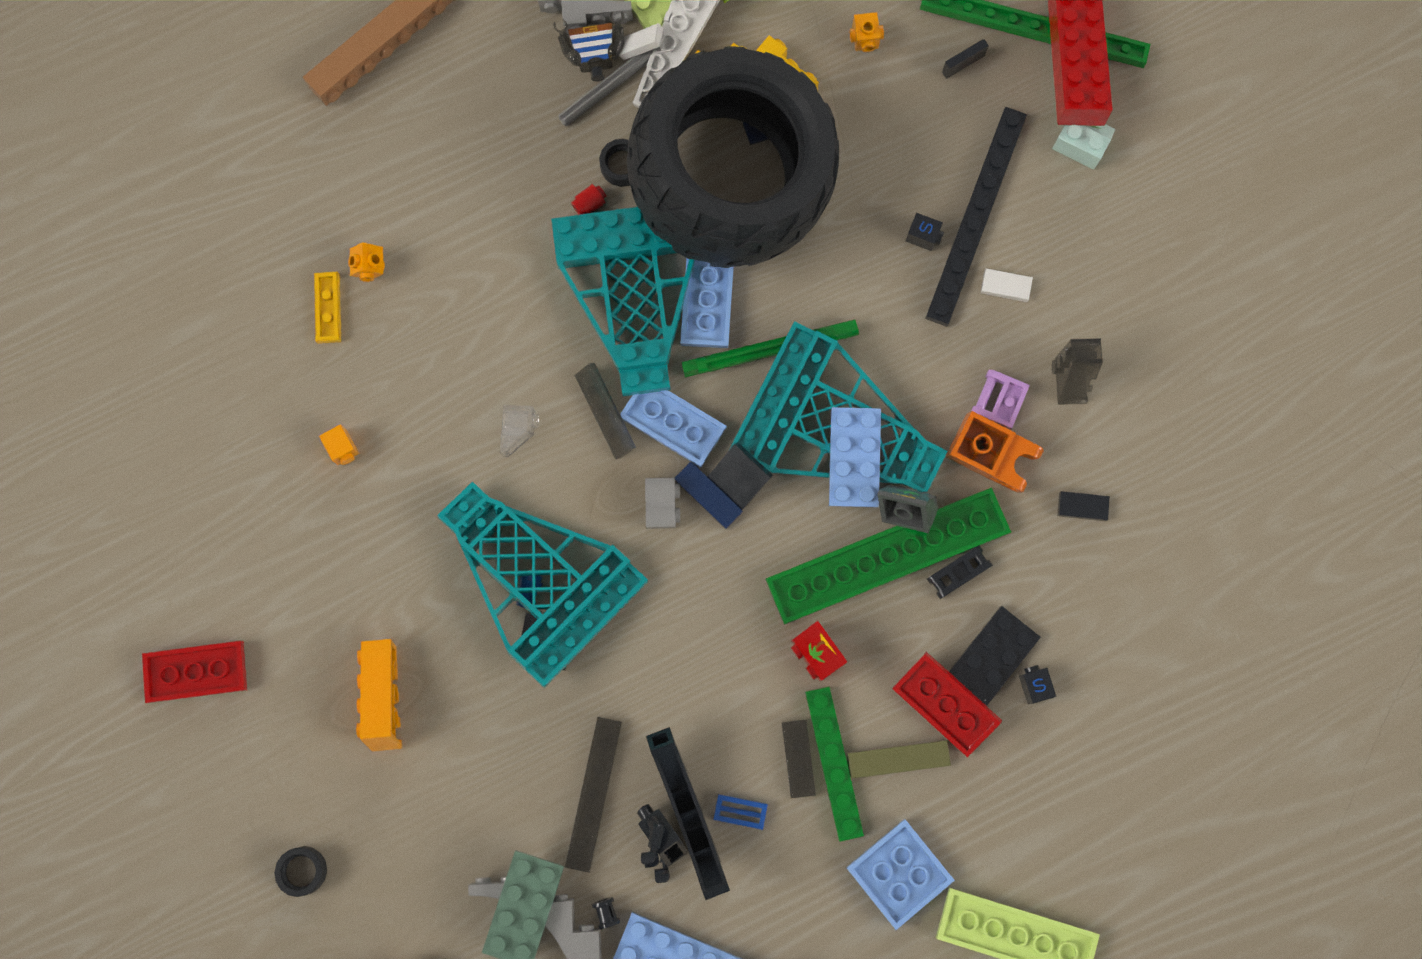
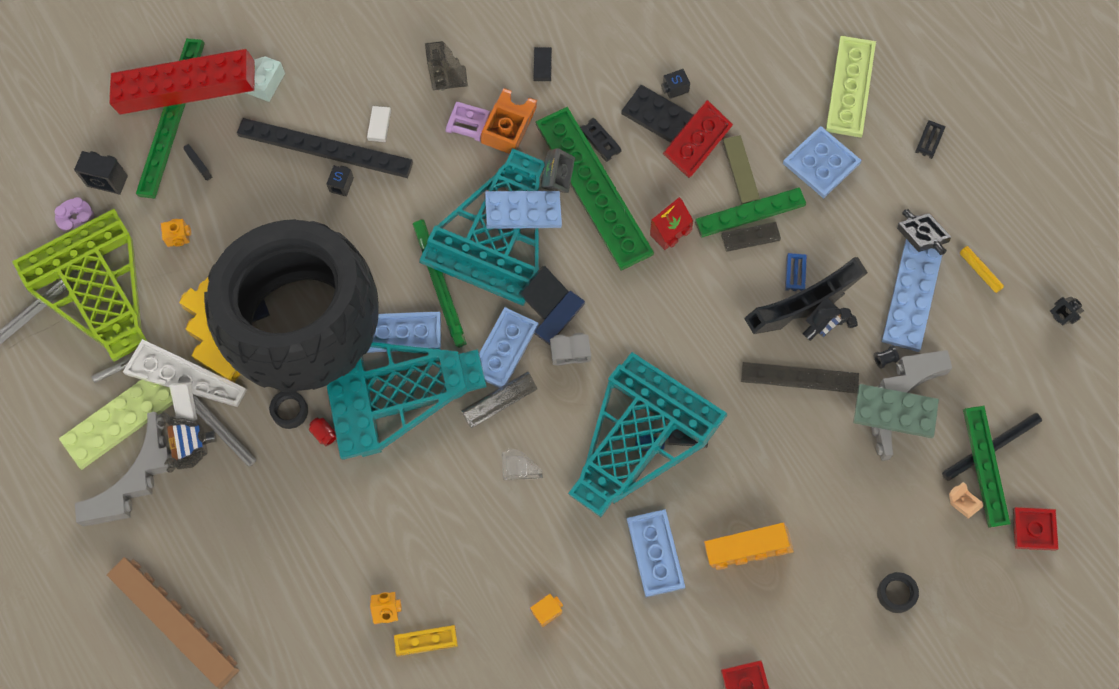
camera: 95 degrees left, 10 degrees down
(392, 581) = (655, 553): none -> light blue tile

